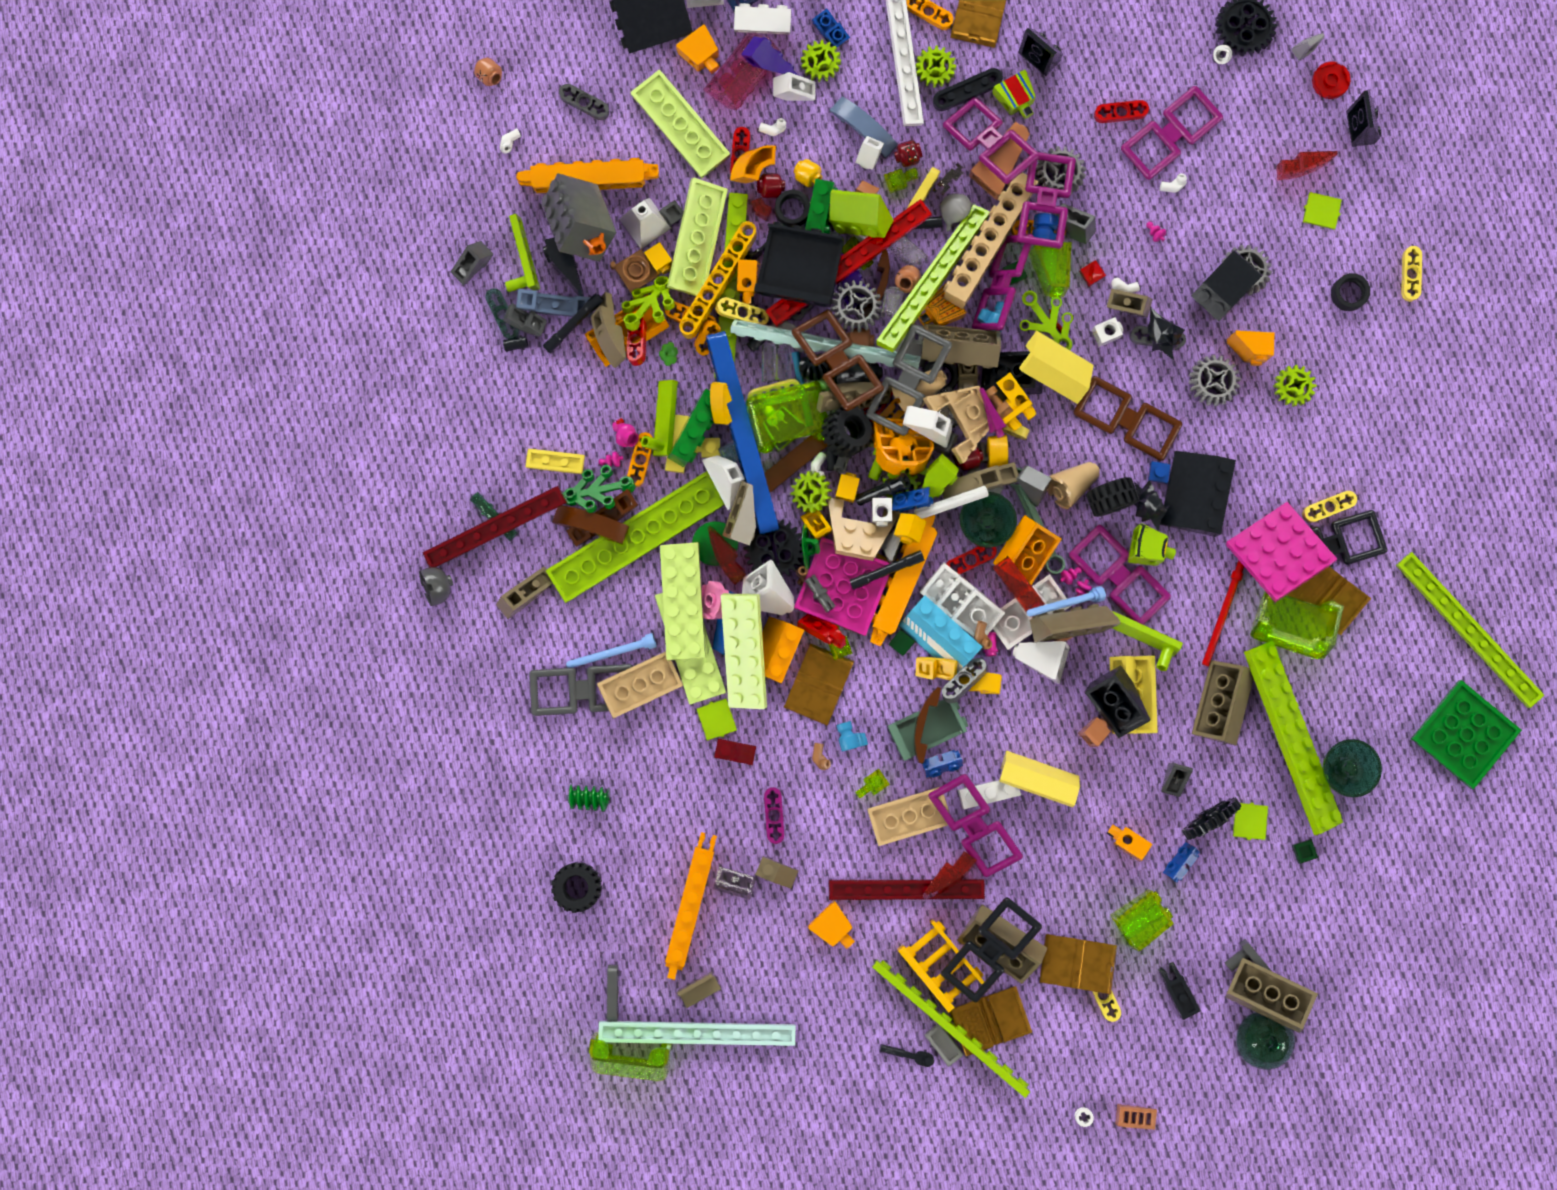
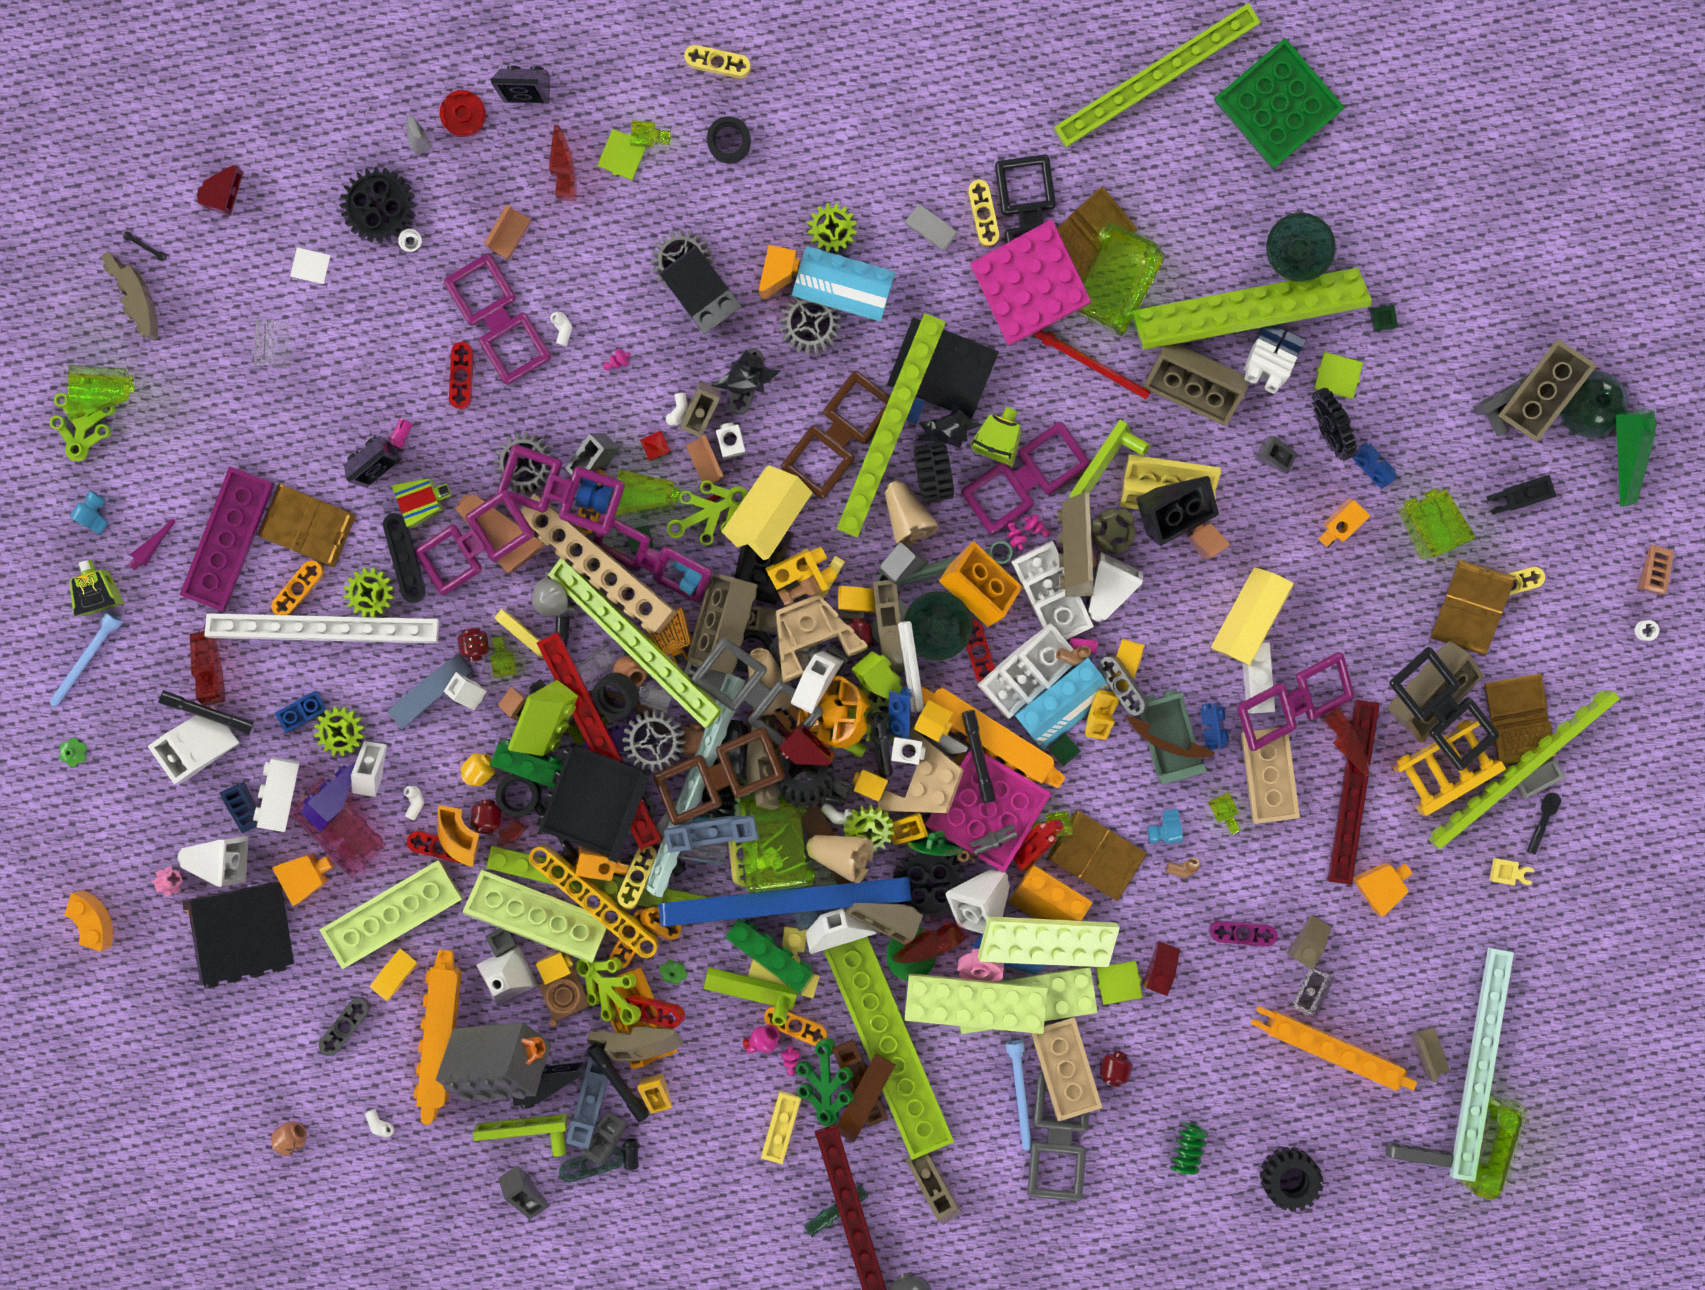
camera: 85 degrees left, 5 degrees up
(567, 355) = (655, 1093): none -> yellow slope
(631, 132) = (393, 975): none -> yellow slope
(645, 726) = (1116, 1068): none -> dark red head
(718, 400) = (743, 925): yellow slope -> none
(788, 473) = (842, 854): none -> tan cone
(790, 360) = (711, 831): none -> sand blue slope
(861, 1030) = (1507, 872): none -> light yellow plate
(873, 424) = (805, 747): none -> dark red slope
(895, 276) = (606, 705): none -> black tyre
(946, 180) = (519, 607): clear smoke plate -> none
(994, 420) = (820, 599): magenta piece -> none
(1017, 584) = (1025, 603): clear red slope -> none
(1066, 71) = (400, 433): none -> dark pink pin
(1087, 314) = (705, 460): none -> nougat panel
(1089, 654) = (1114, 530): none -> olive piece
(1095, 595) = (1045, 511): light blue piece -> none
(1144, 457) = (891, 425): none -> lime plate
(1236, 1077) = (1634, 445): none -> green wedge
(1243, 128) = (507, 232): none -> nougat panel
(1249, 759) = (1272, 366): none -> white hips
(1252, 400) = (843, 283): none -> medium azure slope
(1310, 465) = (931, 227): none -> light grey slope
(1342, 224) = (644, 134): none -> clear neon green plate

